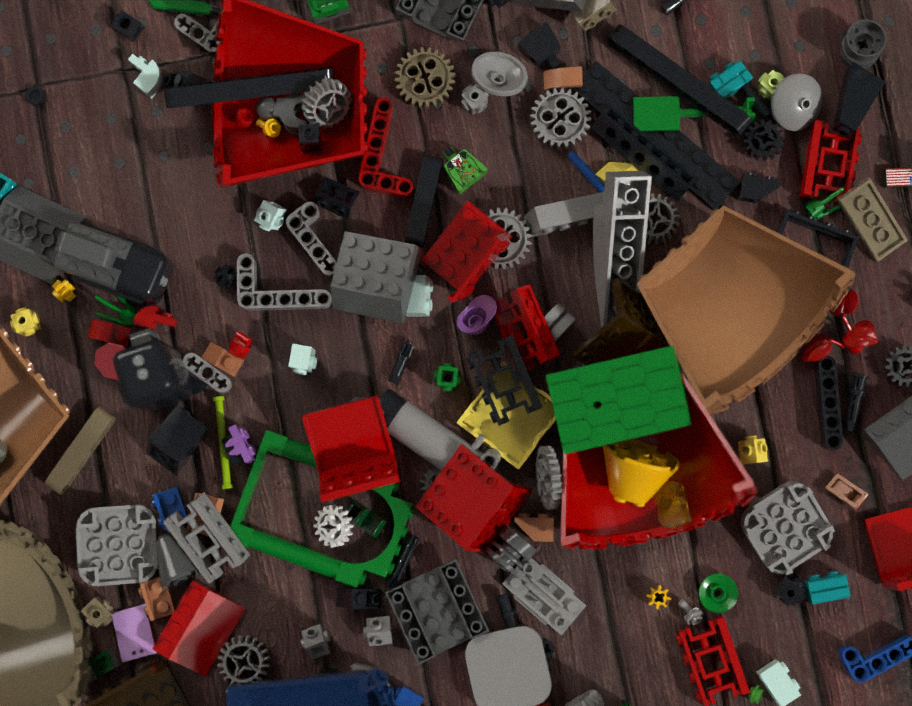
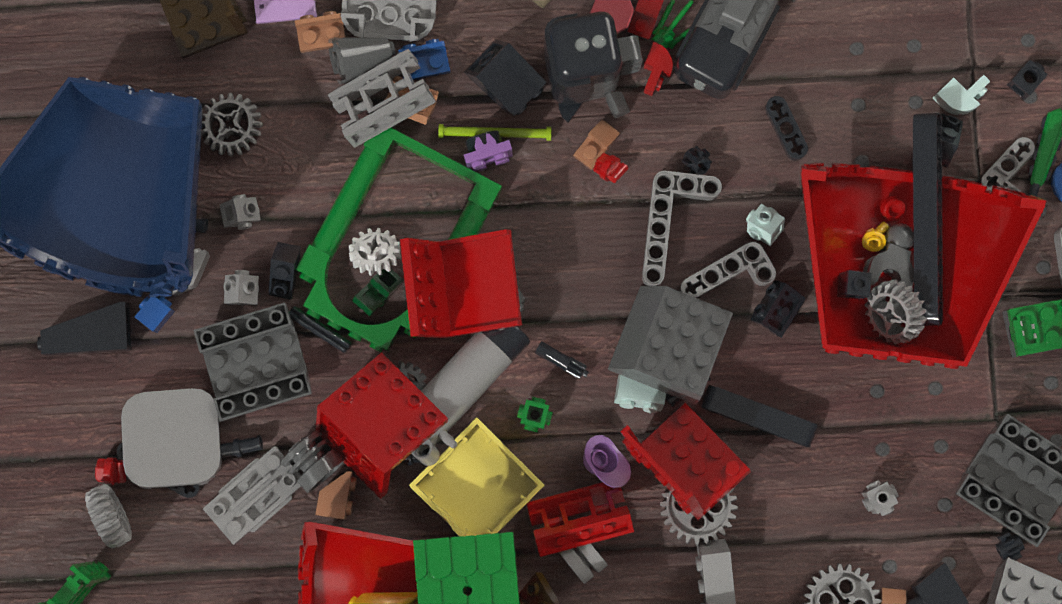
camera: 95 degrees right, 0 degrees up
(175, 212) = (772, 115): none -> black beam
(187, 346) = (617, 104): none -> dark grey slope
(199, 360) = (598, 116): light grey beam -> none
(199, 628) = (278, 77): red slope -> none
(302, 359) = (580, 240): light aqua brick -> none
(377, 153) = (826, 367): red beam -> none
(409, 83) = (910, 418): dark tan gear -> none
(463, 169) = (792, 470): bright green torso -> none
(499, 74) = (907, 533): light grey dish -> none
(517, 375) = (522, 500): black fence -> none
(548, 477) = (392, 520): light grey gear -> none

